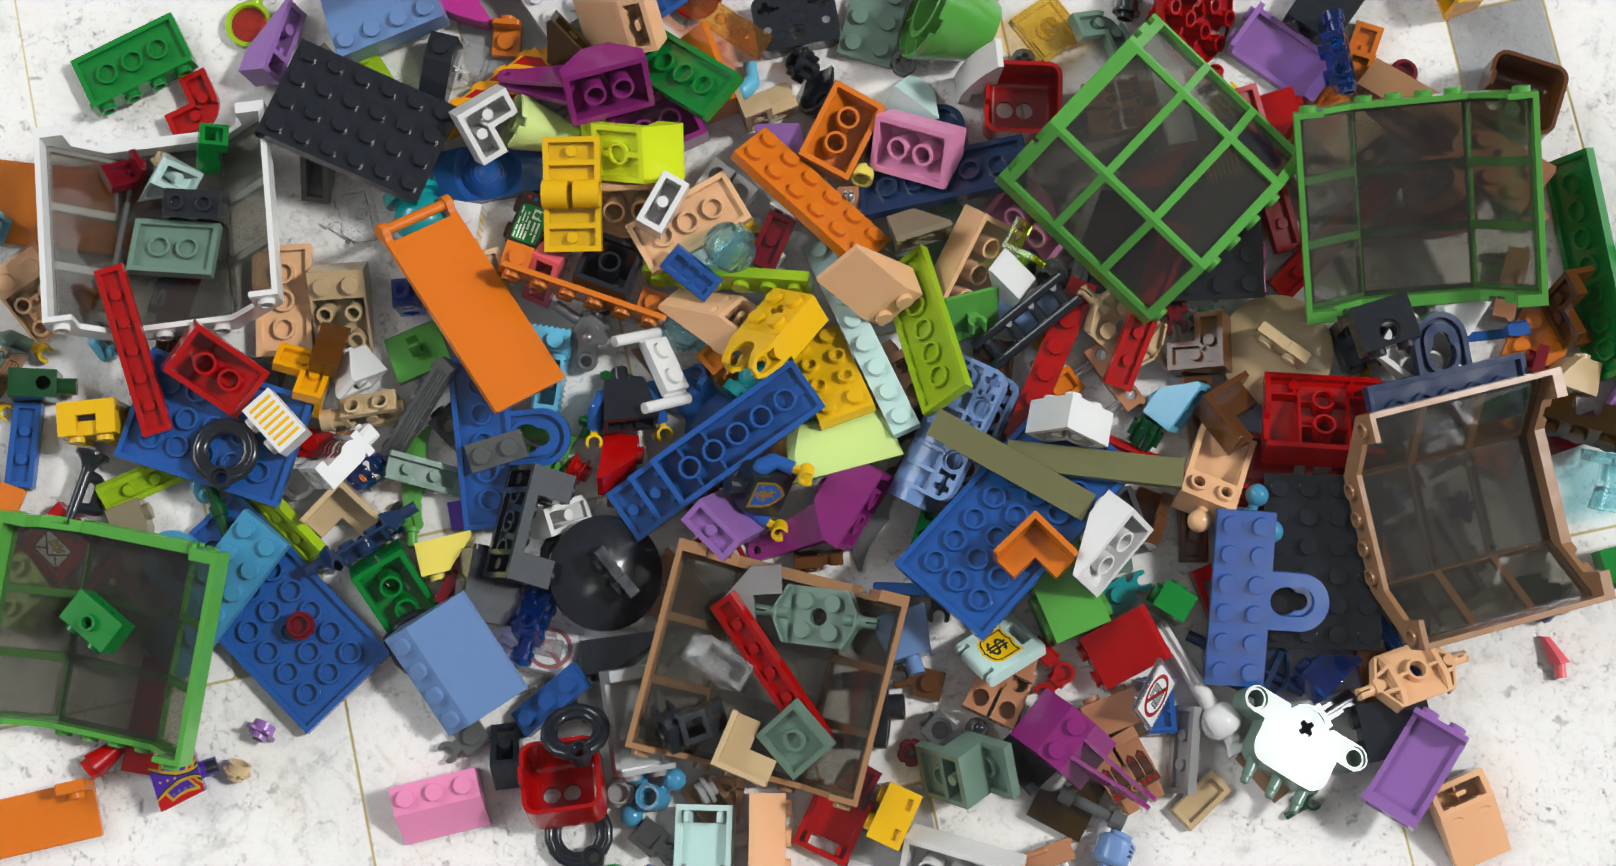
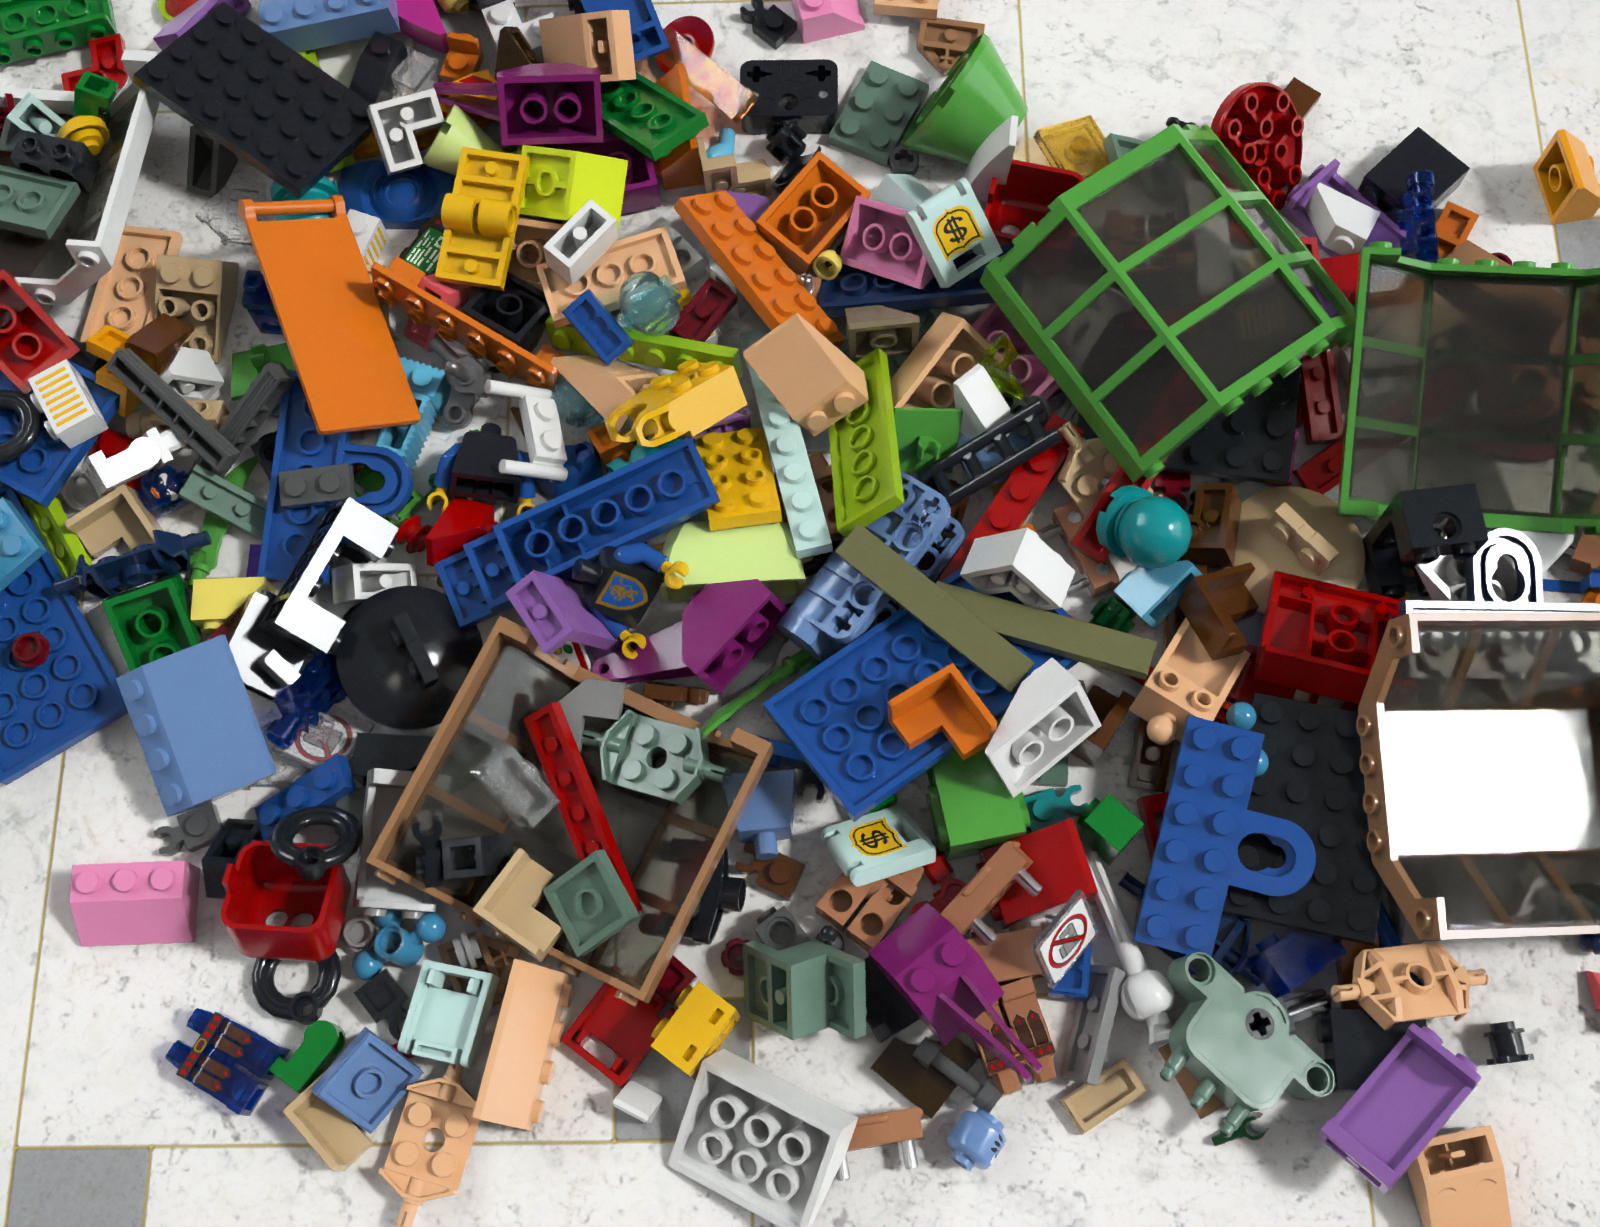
camera: 10 degrees right, 10 degrees down
(211, 176) = (87, 130): none -> yellow plate
(364, 410) = (173, 409): none -> dark grey piece
(506, 605) = (278, 668): none -> tile
(880, 547) = (789, 666): none -> bright green sword
(962, 139) = (950, 228): none -> light aqua container
(1088, 668) = (987, 888): none -> nougat piece
(1159, 362) = (1144, 528): none -> teal tile
(1273, 57) = (1340, 220): none -> white slope
(1487, 703) = (1506, 1044): none -> black brick

